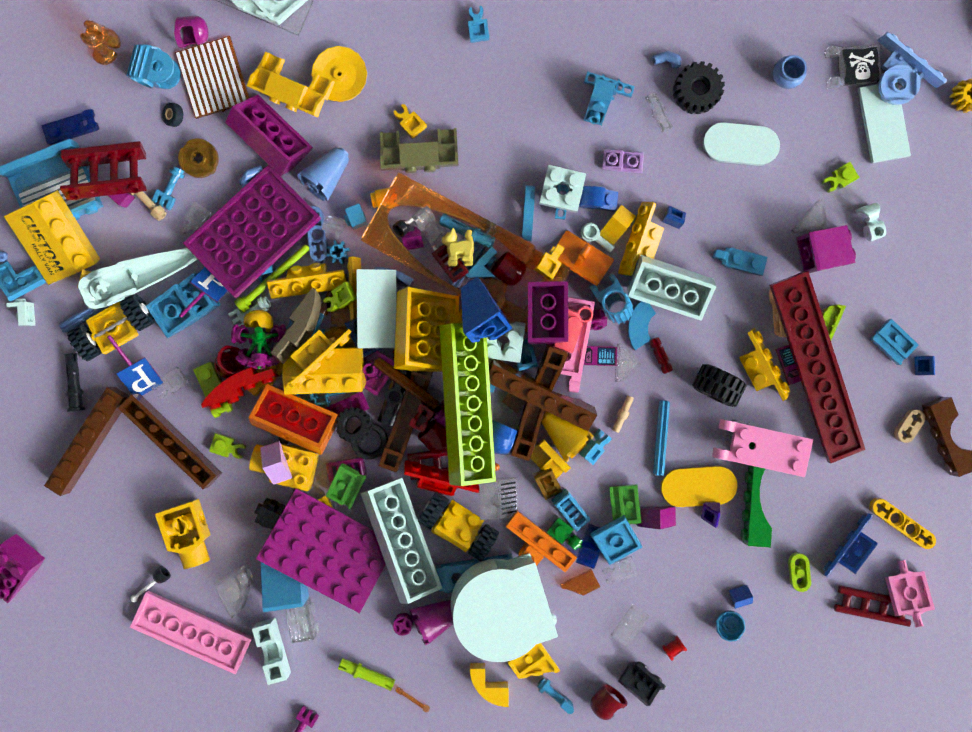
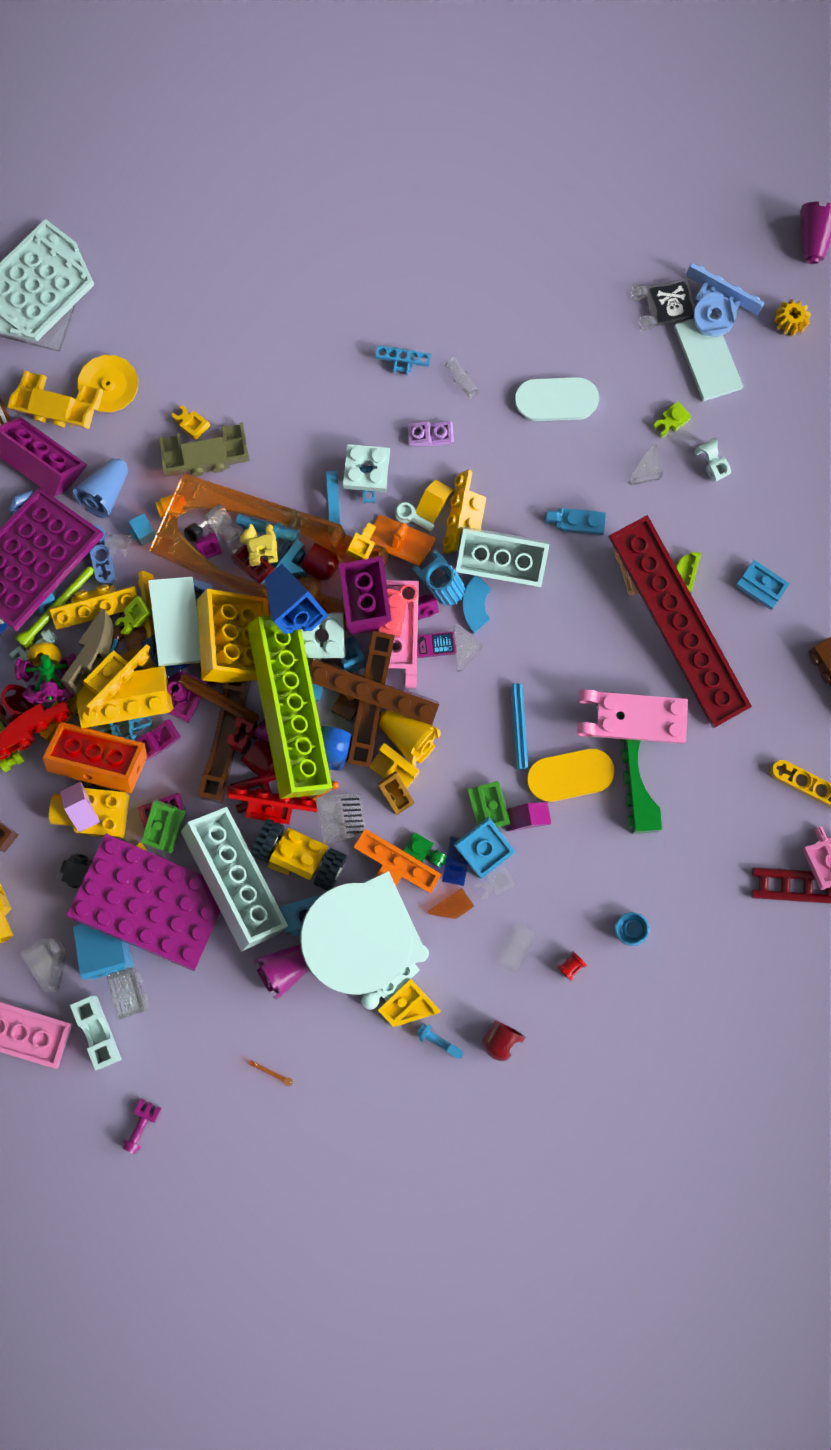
camera: 15 degrees left, 10 degrees down
(224, 446) = (18, 803): lime plate -> none
(333, 249) = (122, 565): dark azure gear -> none
(342, 422) = (158, 743): black tyre -> none
(364, 673) = (211, 1048): lime pin -> none
(371, 455) = (168, 769): black tyre -> none
(390, 408) = (205, 733): black piece -> none
(400, 627) = (244, 980): magenta wheel -> none
(478, 27) = (253, 317): dark azure plate -> none
(493, 692) = (366, 1048): yellow brick -> none
(564, 499) = (433, 817): dark azure slope -> none
(594, 449) = (443, 747): dark azure plate -> none
(598, 198) = (407, 474): blue brick -> none
(599, 101) = (394, 374): dark azure slope -> none
(622, 414) = (471, 705): tan bar -> none
(641, 682) = (539, 1011): black bracket -> none
(660, 355) = (504, 635): dark red axle -> none
(667, 56) = (463, 320): medium blue arm -> none
(674, 217) = (496, 485): blue slope -> none
(691, 100) = (495, 360): black tyre -> none
(711, 513) = (588, 802): dark purple slope -> none
(719, 385) = (572, 654): black tyre -> none
(741, 596) = (640, 896): blue slope -> none
(761, 367) = (618, 632): yellow bracket -> none
(788, 365) = (648, 626): tile -> none
(789, 71) = (595, 317): medium blue piece -> none
(801, 570) = (705, 856): lime plate -> none
(826, 249) = (668, 494): magenta slope -> none
(855, 551) = (760, 823): blue bracket -> none
(911, 426) = (793, 673): tan beam -> none
(925, 365) = (802, 606): blue slope -> none

